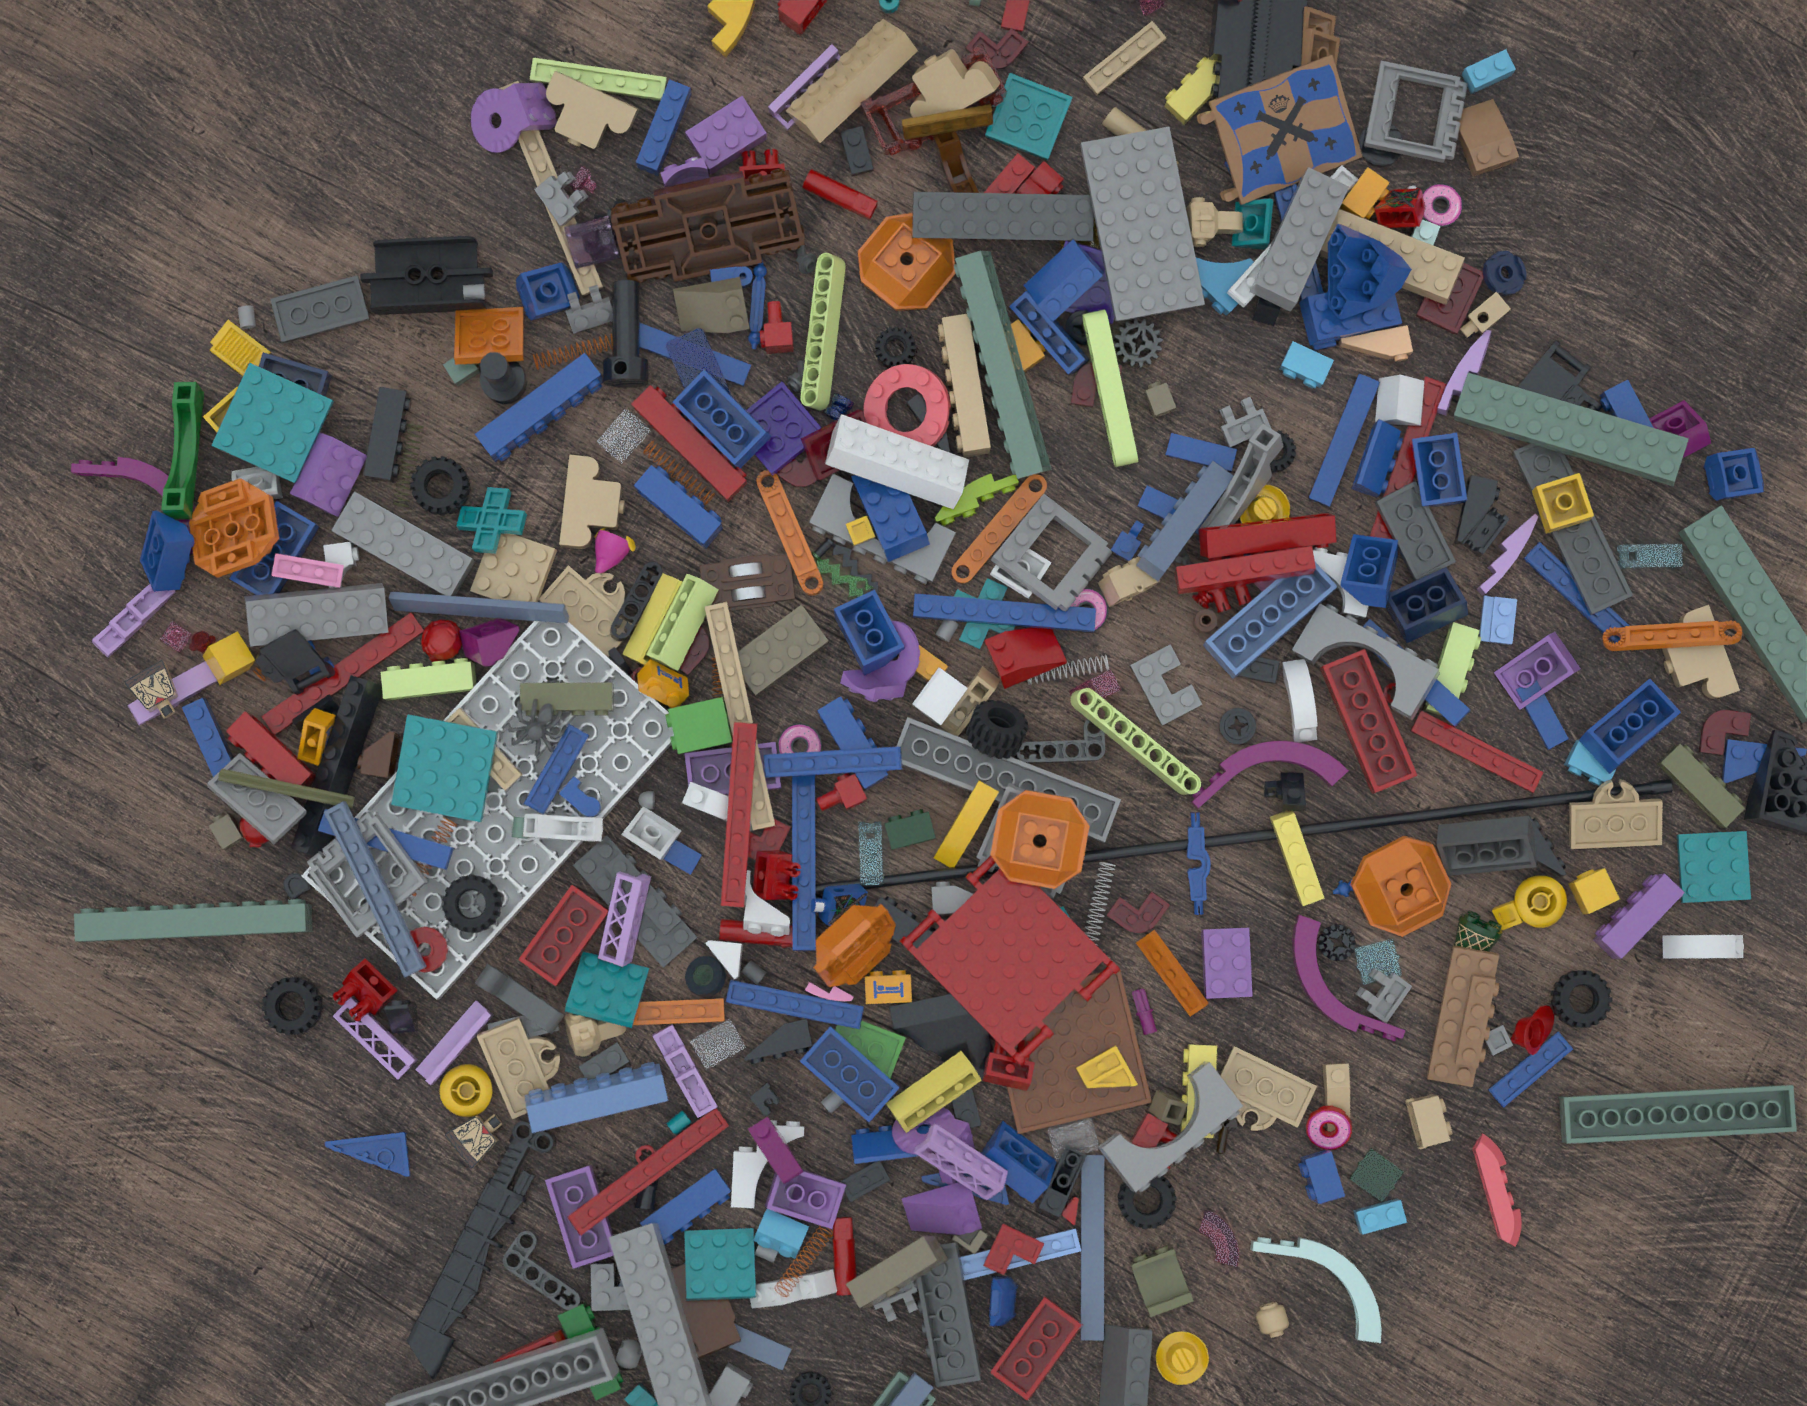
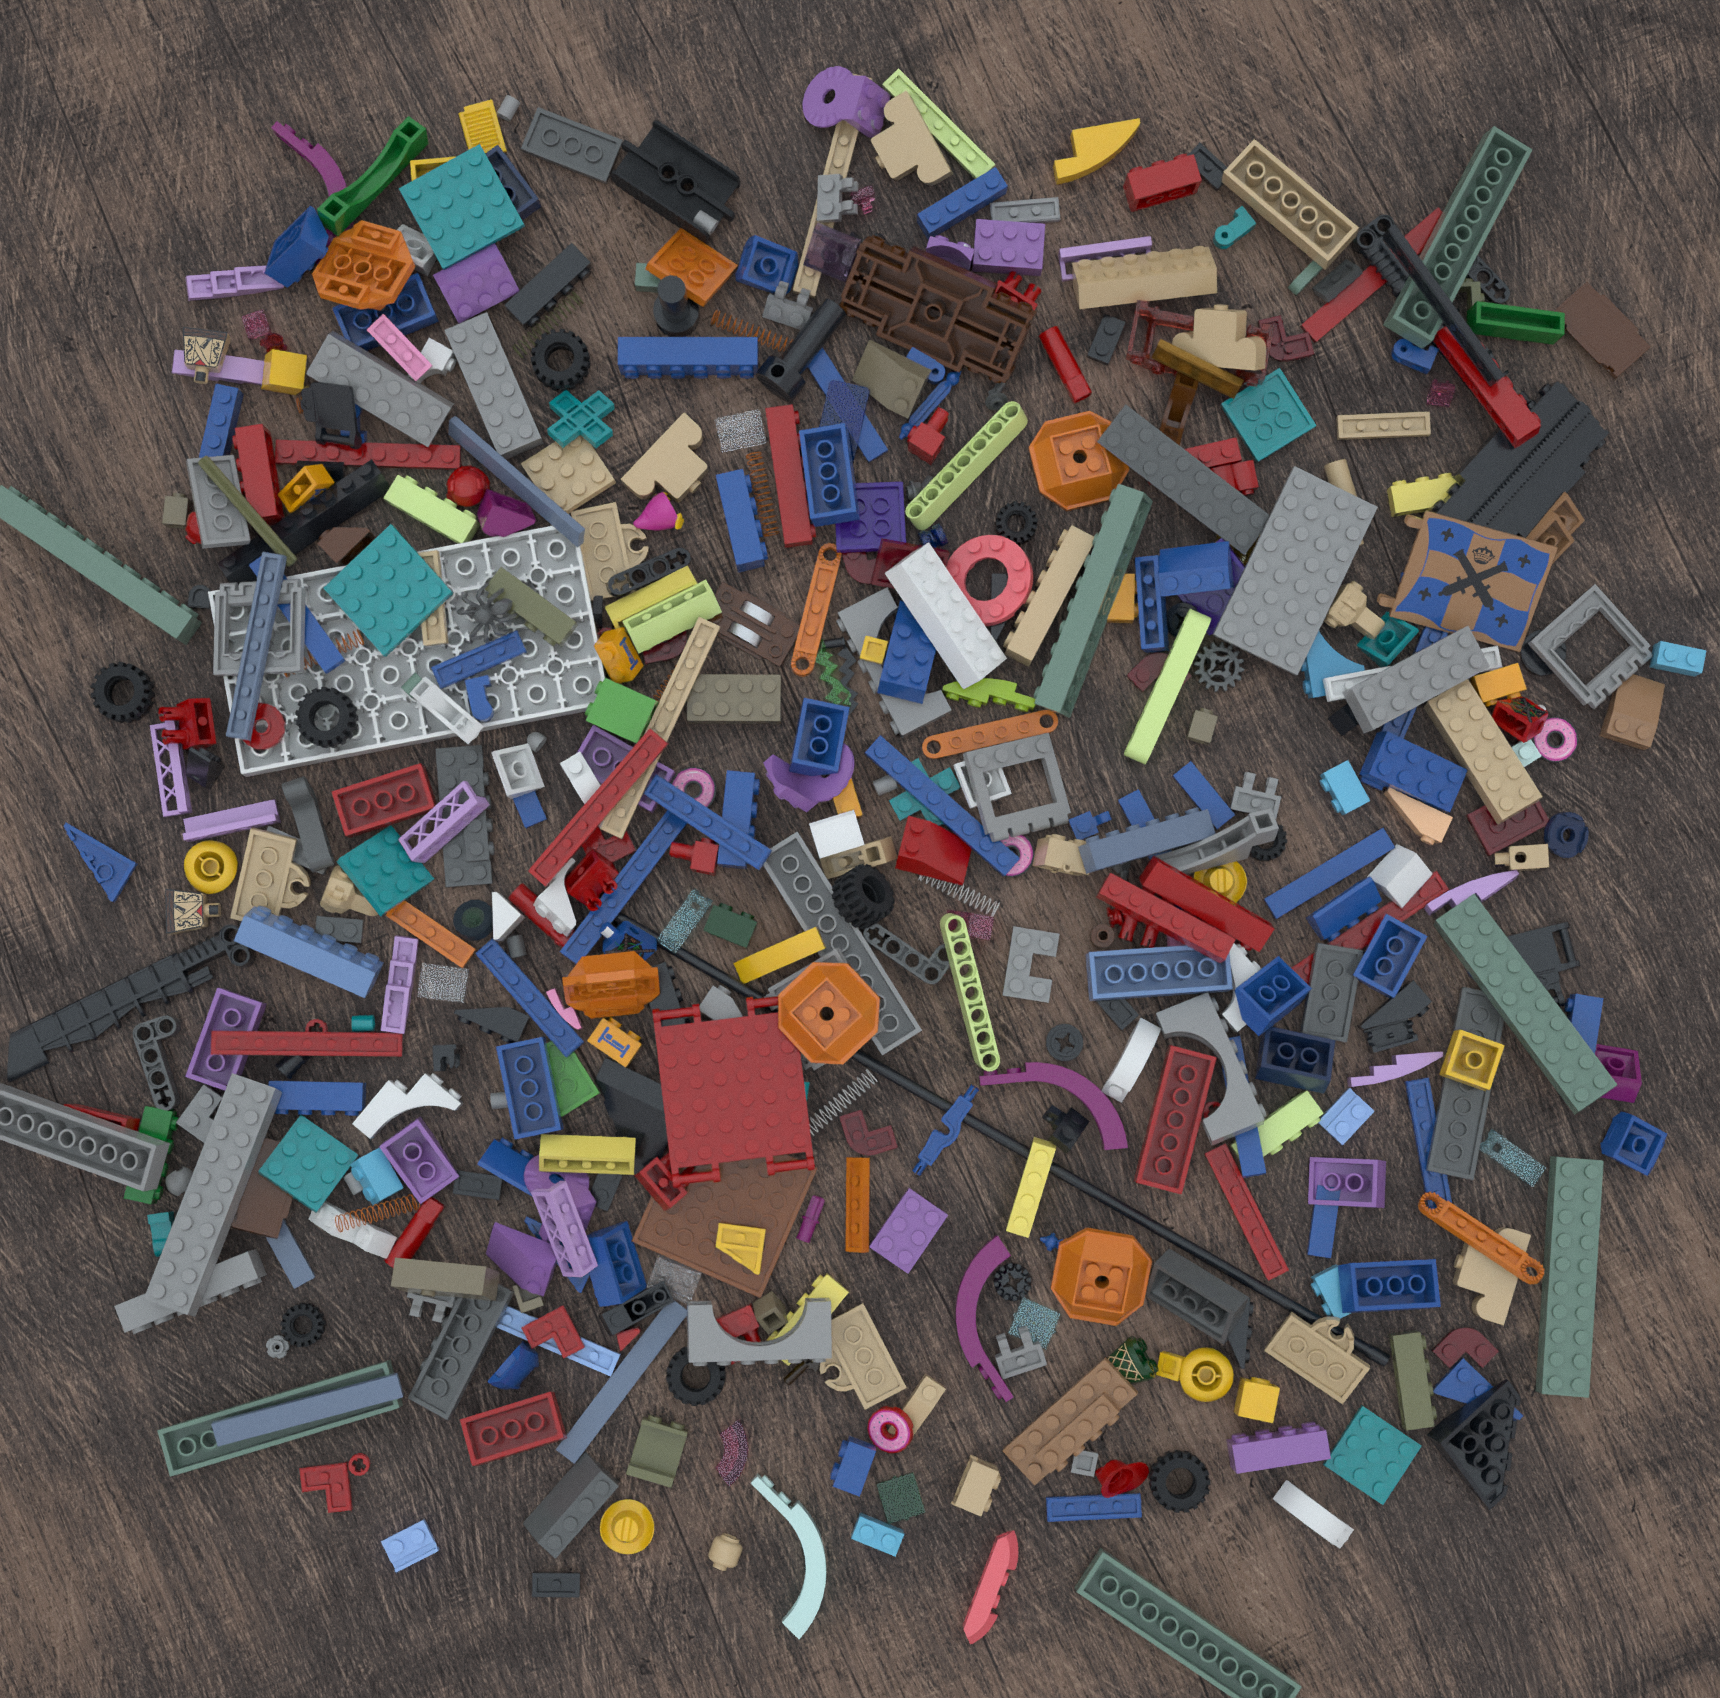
camera: 35 degrees right, 0 degrees up
(718, 96) = (1030, 211): none -> light grey tile
(775, 1150) = (420, 1104): magenta slope -> none
(1361, 272) = (1447, 744): blue brick -> none

